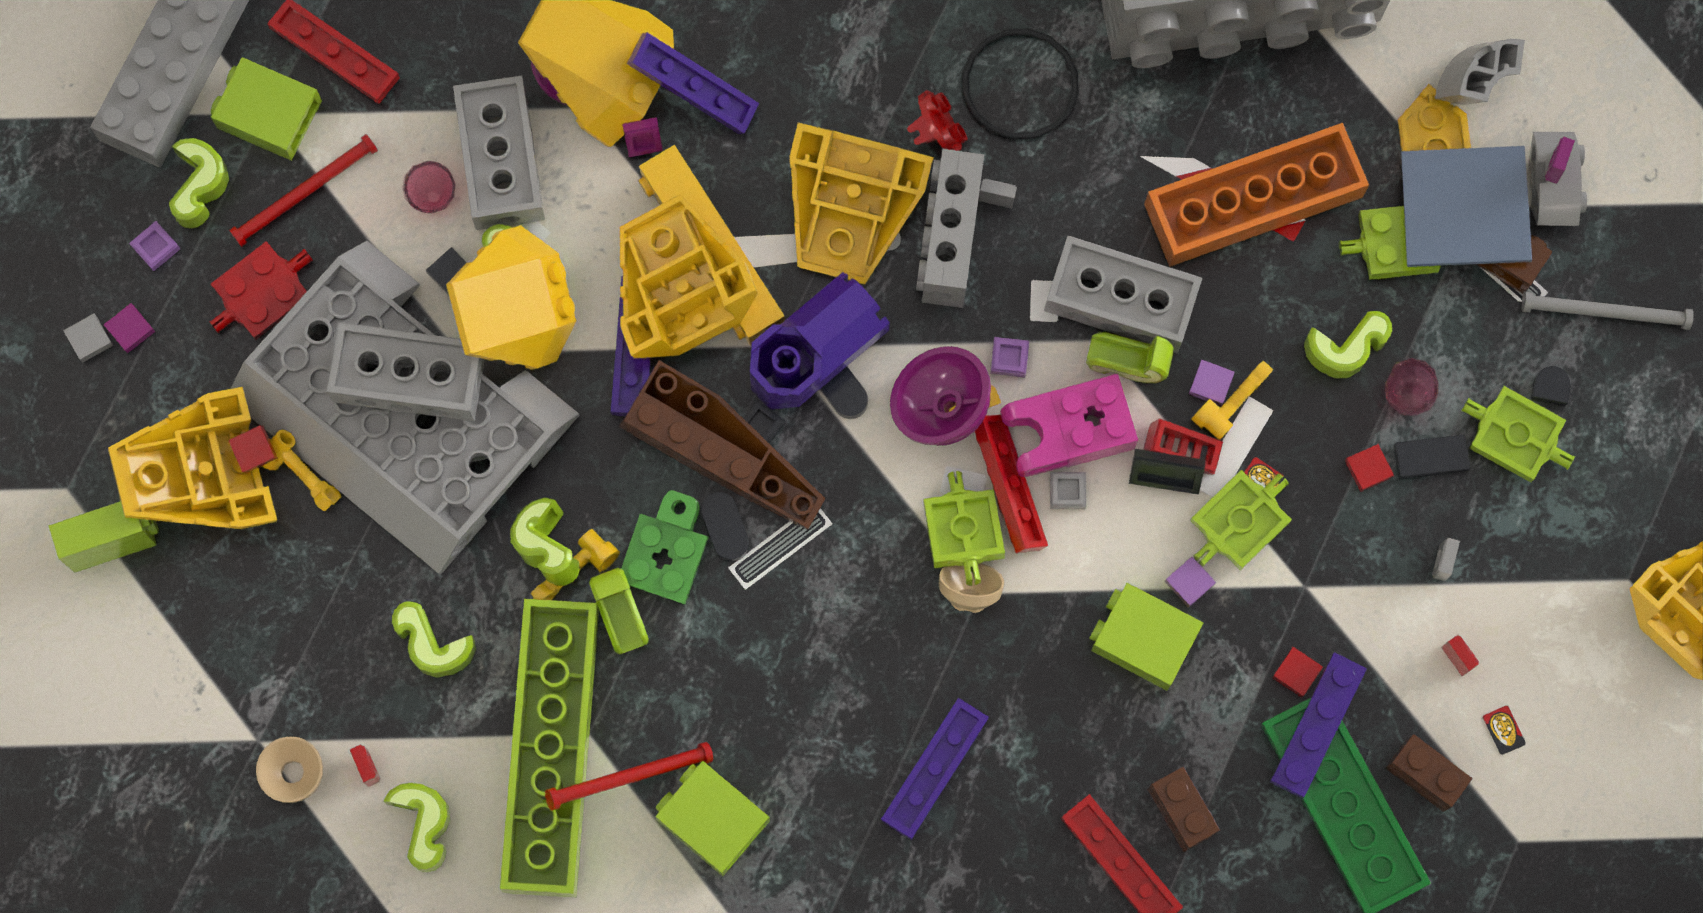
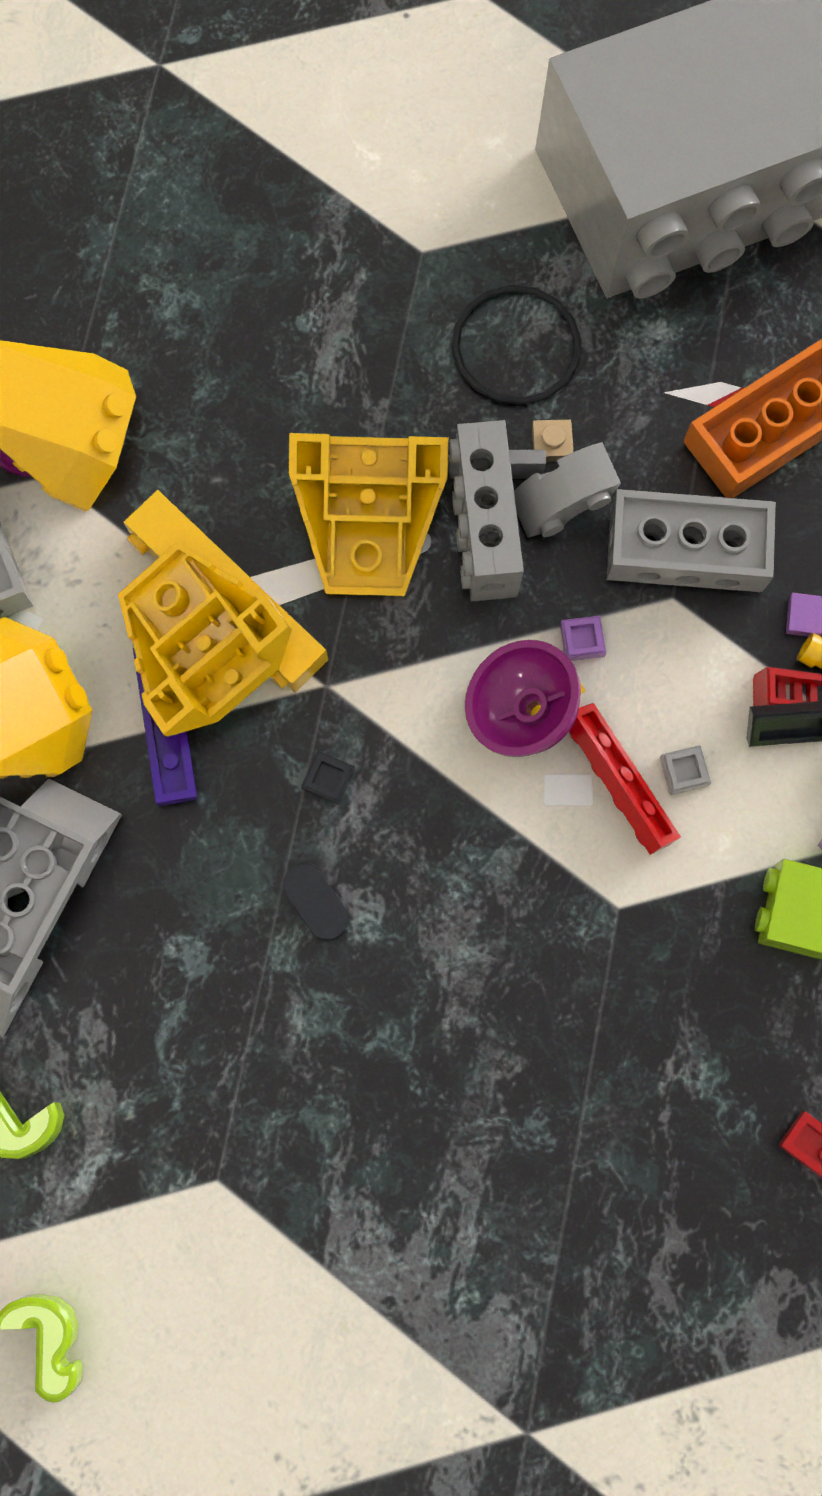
camera: 15 degrees left, 0 degrees up
(537, 549) = (98, 976): lime animal -> none
(549, 747) = (175, 1219): lime brick -> none
(557, 797) = (273, 1228): red bar -> none
(594, 550) = (174, 966): yellow brick -> none
(618, 610) = (218, 1031): lime animal -> none
(642, 137) = (120, 491): magenta tile -> none
(667, 532) = (261, 926): bright green plate -> none
(692, 83) = (161, 417): dark purple plate -> none
(711, 817) = (382, 1248): lime brick -> none
(718, 443) = (286, 810): reddish brown wedge -> none
(776, 549) = (382, 908): sticker -> none
(822, 333) = (367, 672): dark purple brick -> none
(846, 395) = (405, 714): black tile -> none
(934, 769) = (622, 1125): dark purple plate -> none
(937, 122) = (438, 403): red plate -> none
(964, 528) = (584, 840): lime plate -> none
(975, 597) = (610, 897): tan piece -> none
(1015, 229) = (578, 484): none -> light grey brick
(1029, 177) = (553, 437): none -> tan plate
(1039, 296) = (596, 563): white sticker -> none
(1062, 427) = (666, 704): dark pink brick -> none
(1130, 357) = (717, 608): lime animal -> none

